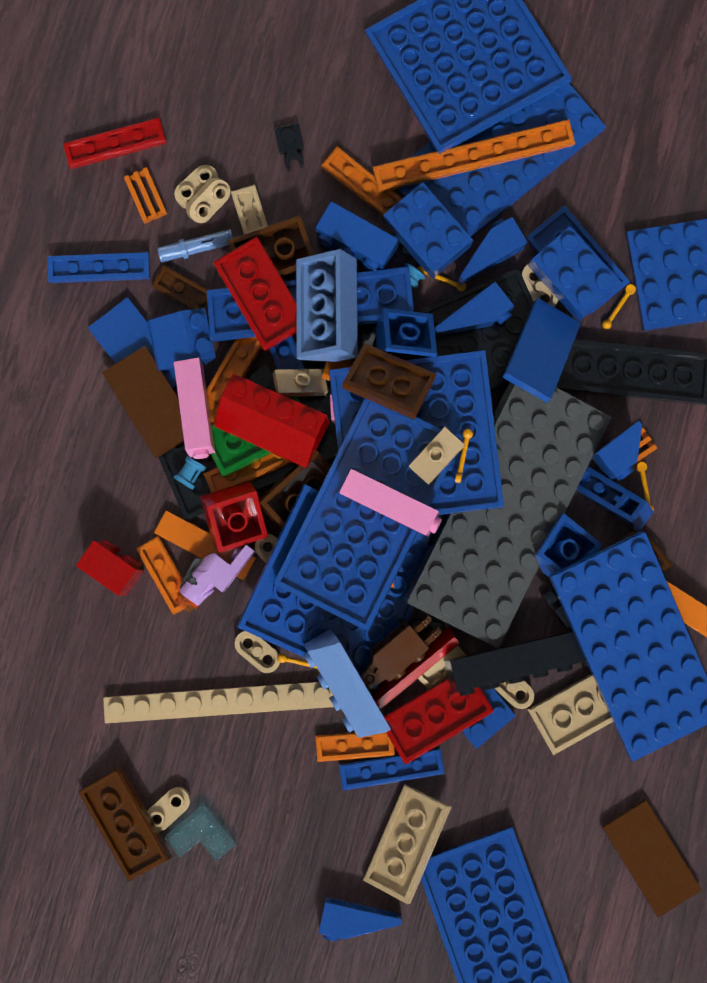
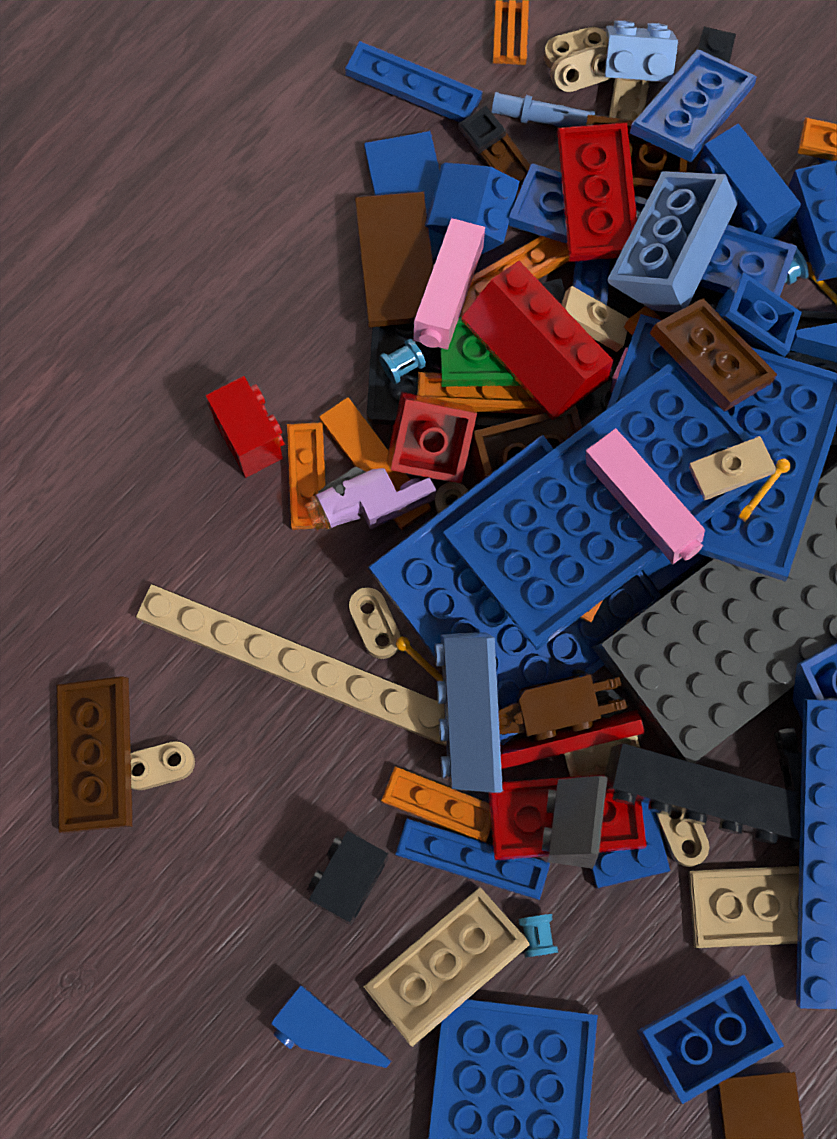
camera: 20 degrees right, 10 degrees down
(161, 280) = (482, 129): none -> black tile
(202, 827) = (190, 811): clear light blue plate -> none
(240, 170) = (640, 52): none -> light blue bracket
(294, 197) = (693, 105): none -> blue tile
(322, 823) = (348, 877): none -> black brick
(359, 181) = (776, 129): orange tile -> none
(443, 722) = (576, 821): none -> dark grey slope
(454, 796) = (530, 927): none -> dark azure bush
(586, 809) = (710, 1038): none -> blue brick

